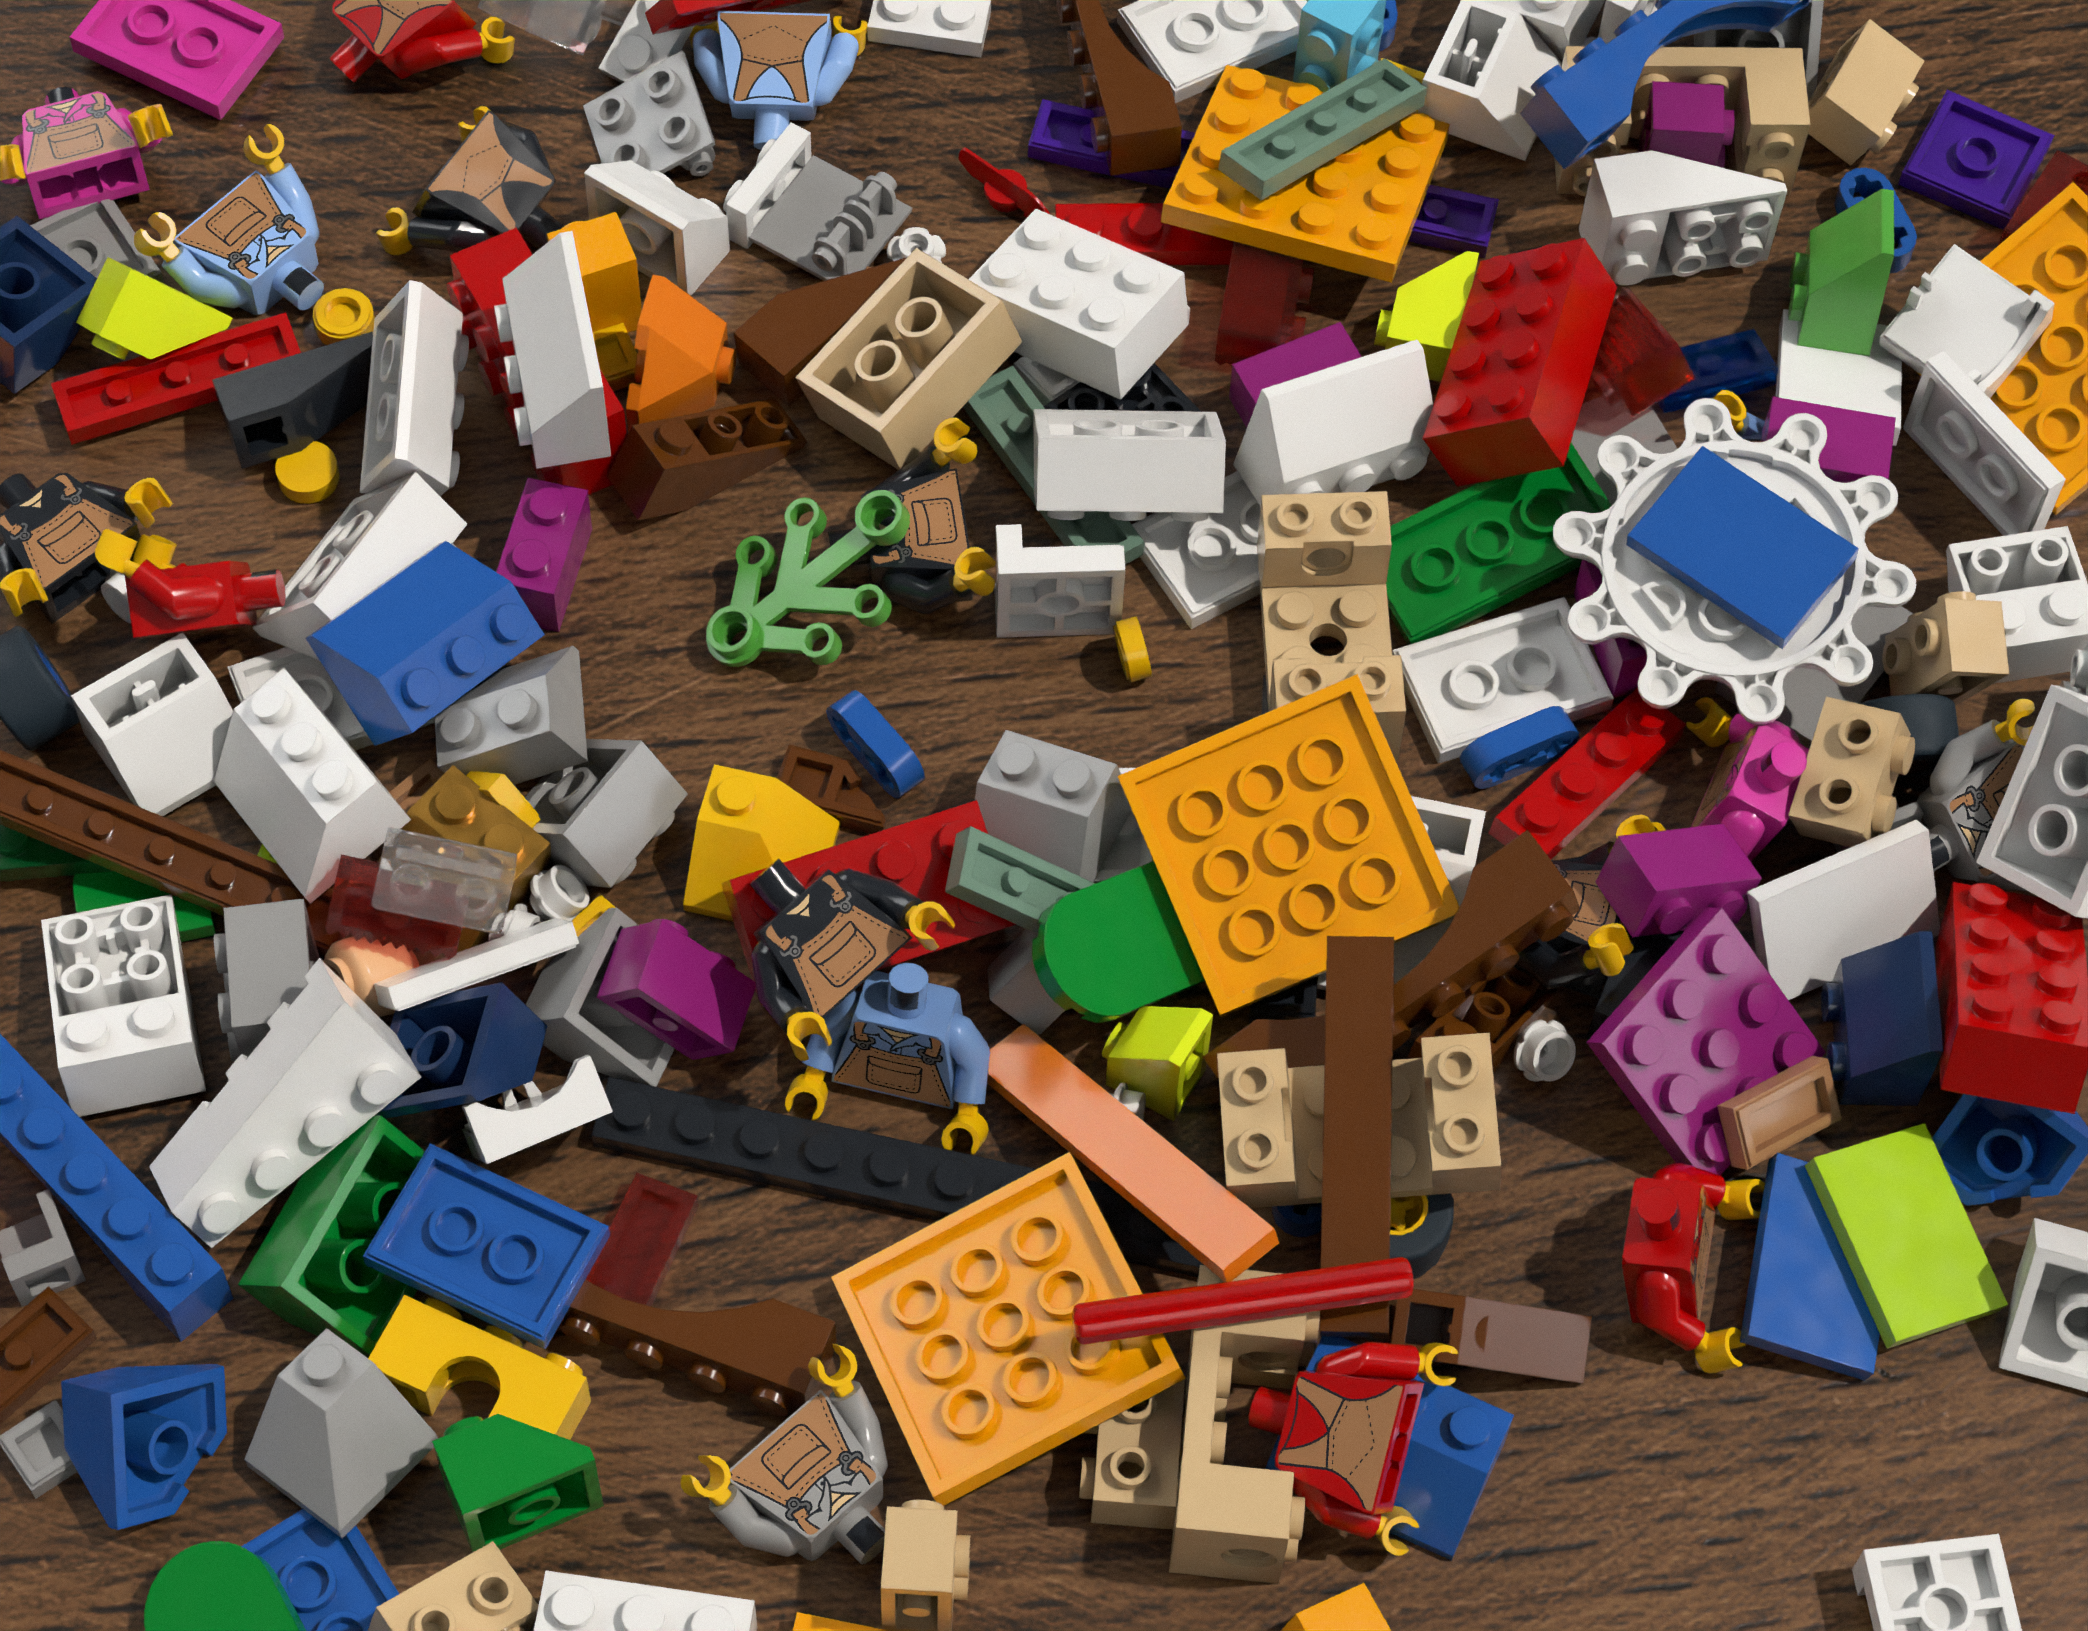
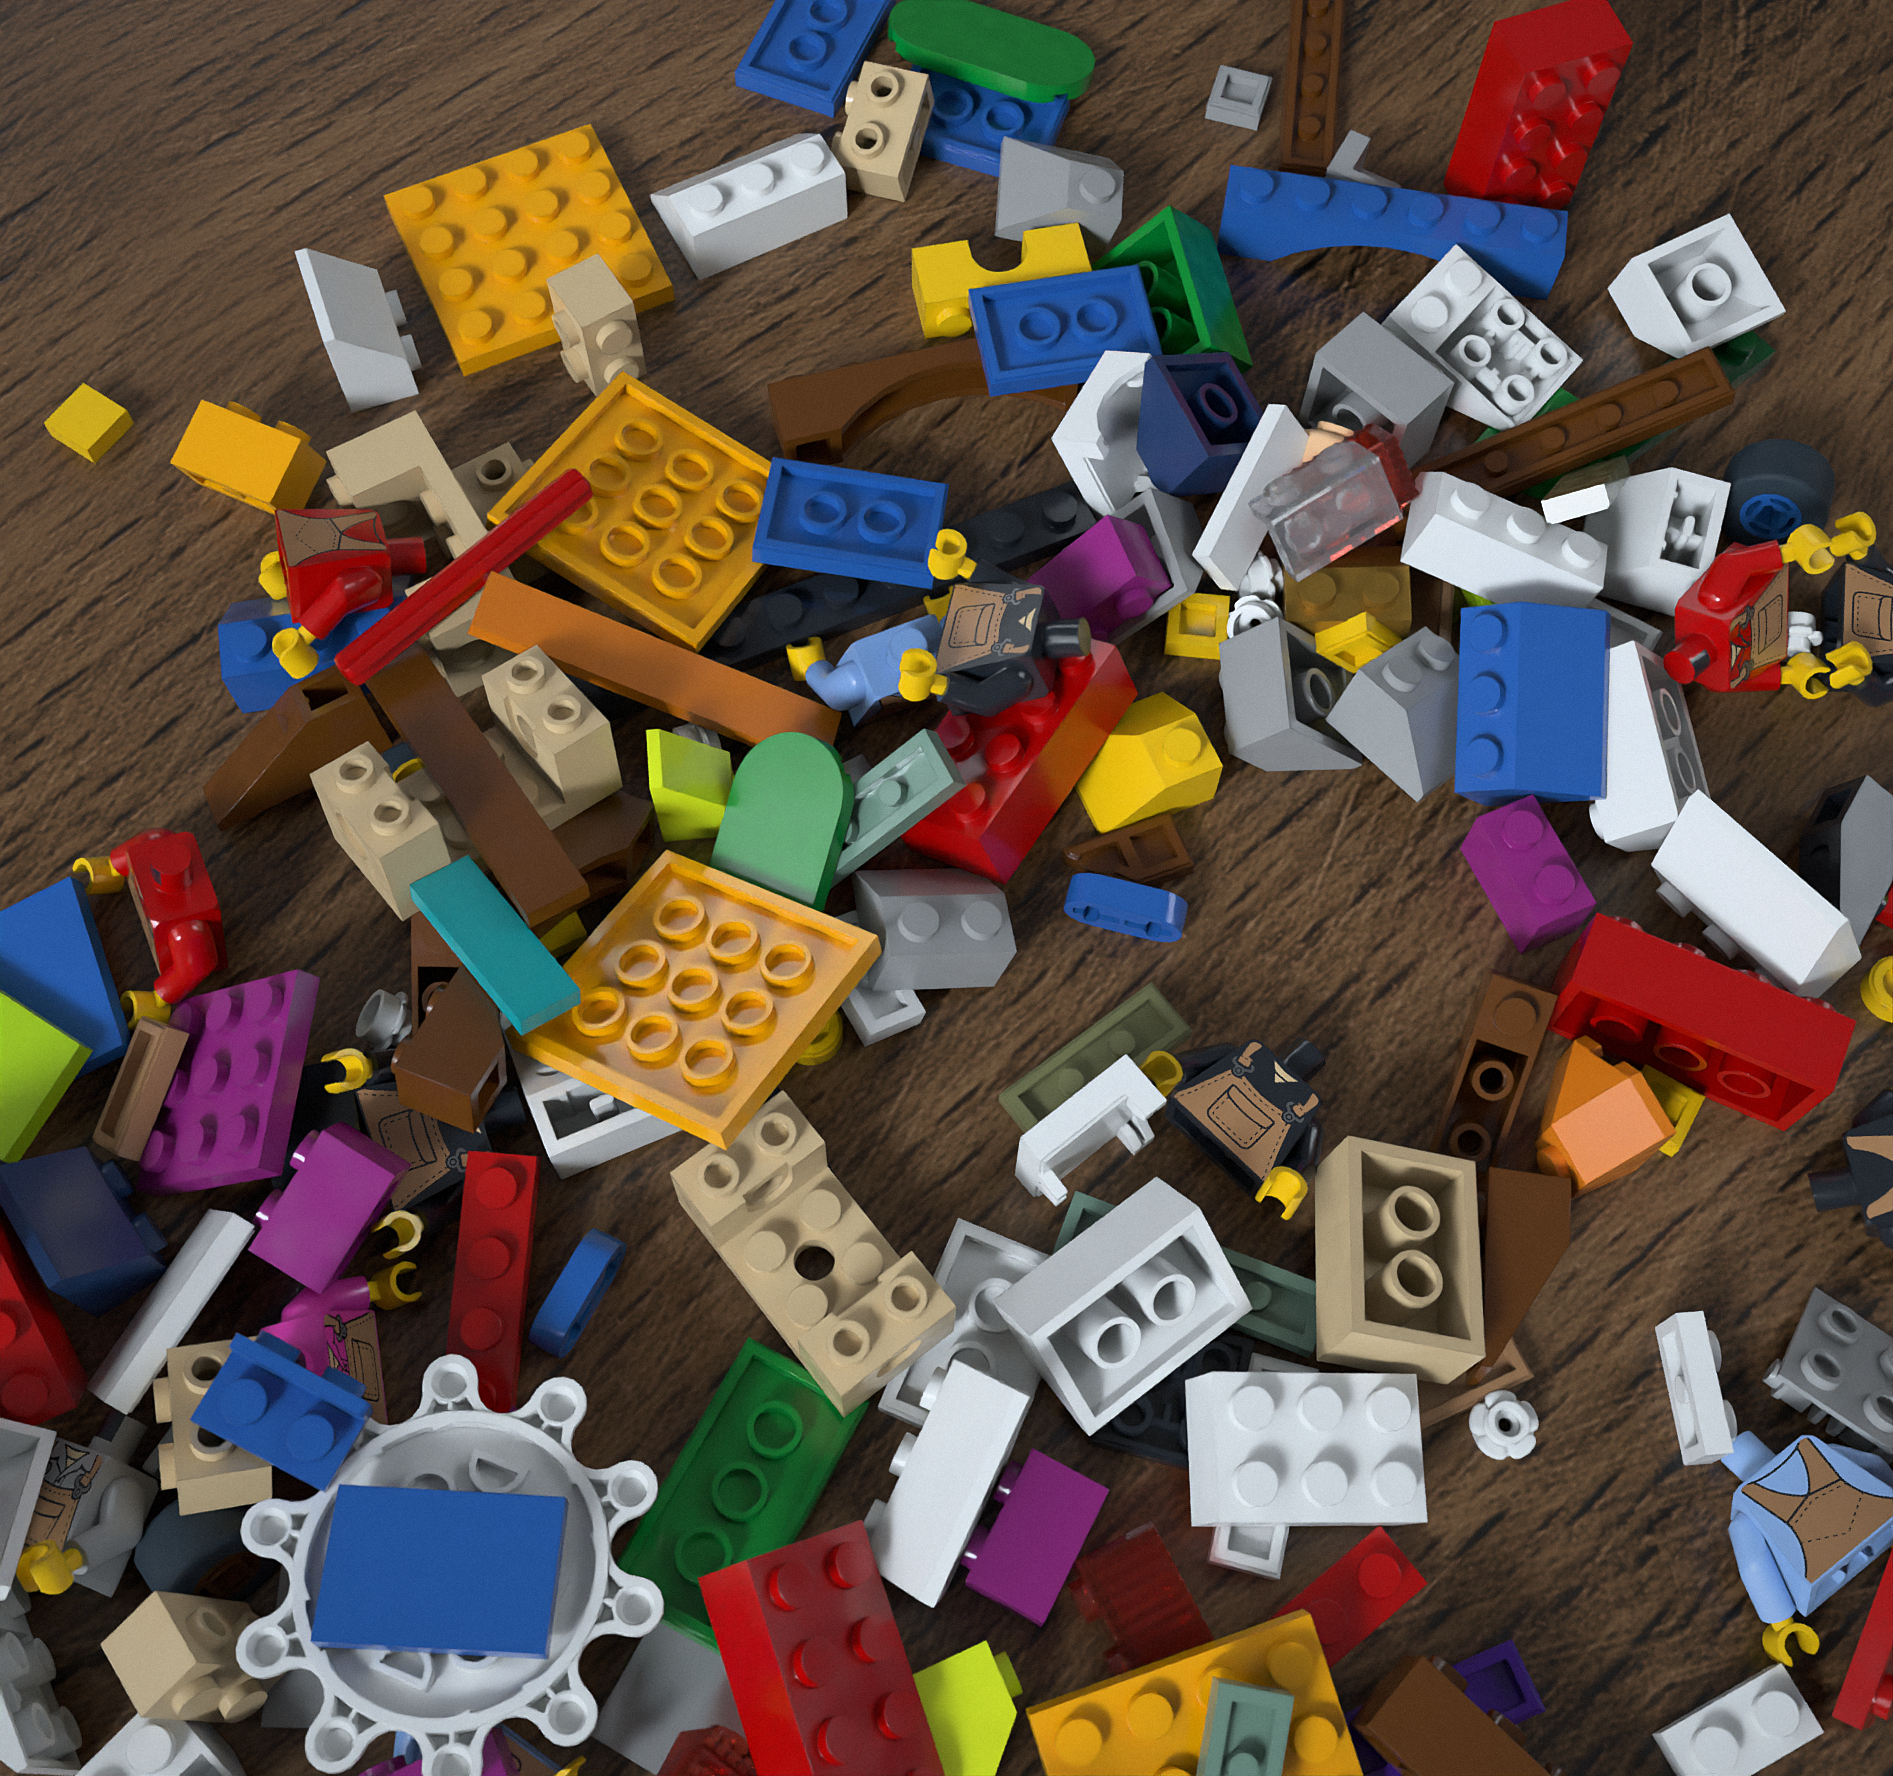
camera: 145 degrees right, 5 degrees up
(142, 1435) = (1184, 119): blue slope -> none
(207, 752) = (1586, 490): none -> tile
(283, 1108) = (1279, 316): white wedge -> none
(308, 474) = (1778, 828): yellow tile -> none
(514, 1479) = (916, 204): green slope -> none
(553, 357) = (1658, 951): white slope -> none
(607, 271) = (1736, 1139): light orange brick -> none
(644, 1239) = (976, 442): clear red tile -> none
(665, 225) = (1748, 1255): white slope -> none
(800, 585) = (1318, 931): bright green plant -> none
(808, 1477) = (729, 348): torso -> none
(831, 220) = (1607, 1401): light grey hinge -> none
(836, 1203) = (849, 522): none -> blue tile
(996, 659) = (1133, 1028): none -> olive tile
(1003, 188) = (1492, 1572): red piece -> none
(1132, 649) = (984, 1144): yellow tile -> none
(1428, 951) = (495, 945): none -> teal tile
(1498, 674) = (651, 1359): white tile -> none
(1796, 707) = (284, 1410): none -> blue bracket

